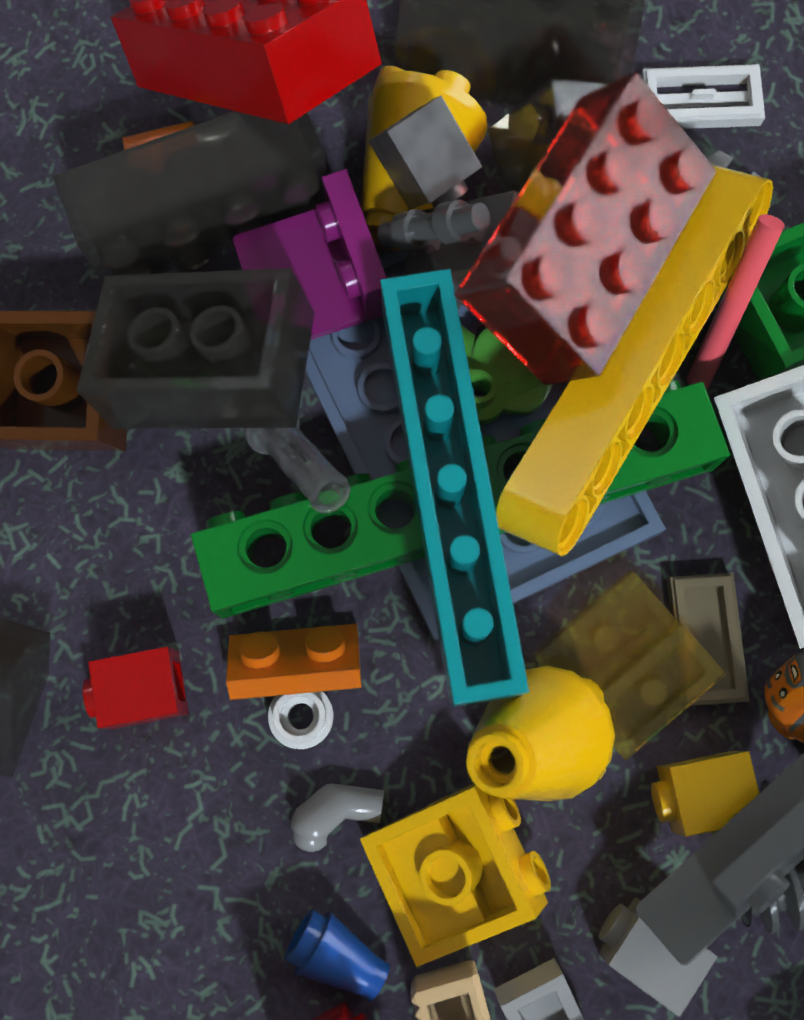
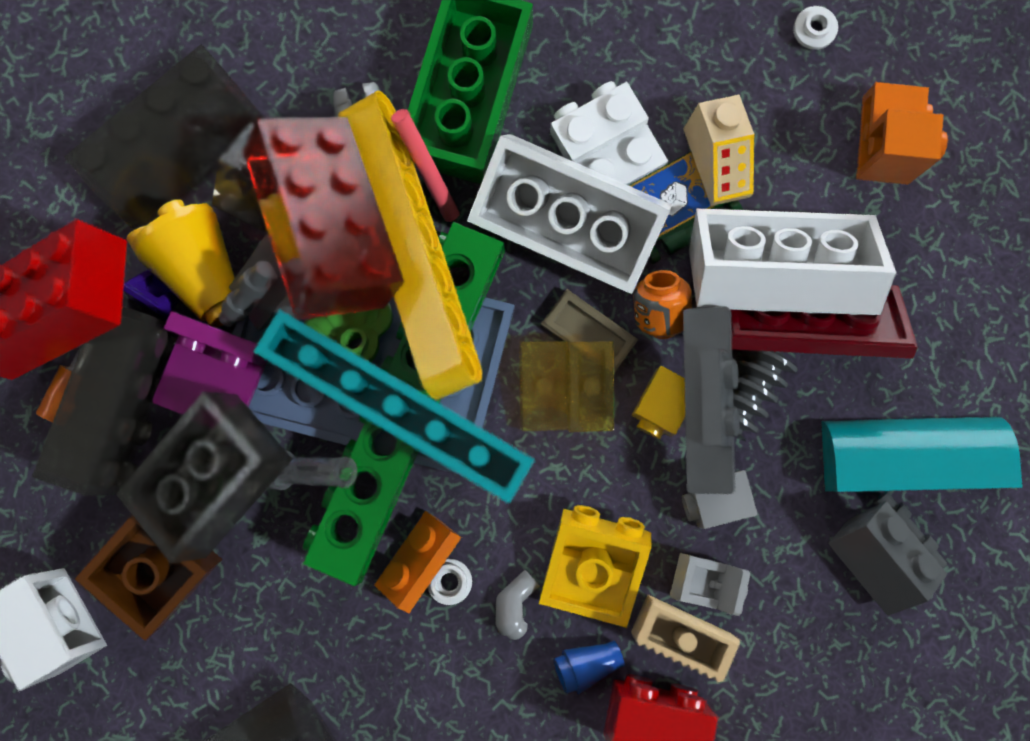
camera: 45 degrees left, 5 degrees up
(135, 688) = (360, 659): red brick -> none
(343, 144) = (151, 294): none -> dark purple slope
(427, 155) = (202, 261): flat silver brick -> none
(544, 741) = (568, 466): yellow cone -> none
(710, 75) = (307, 81): white tile -> none

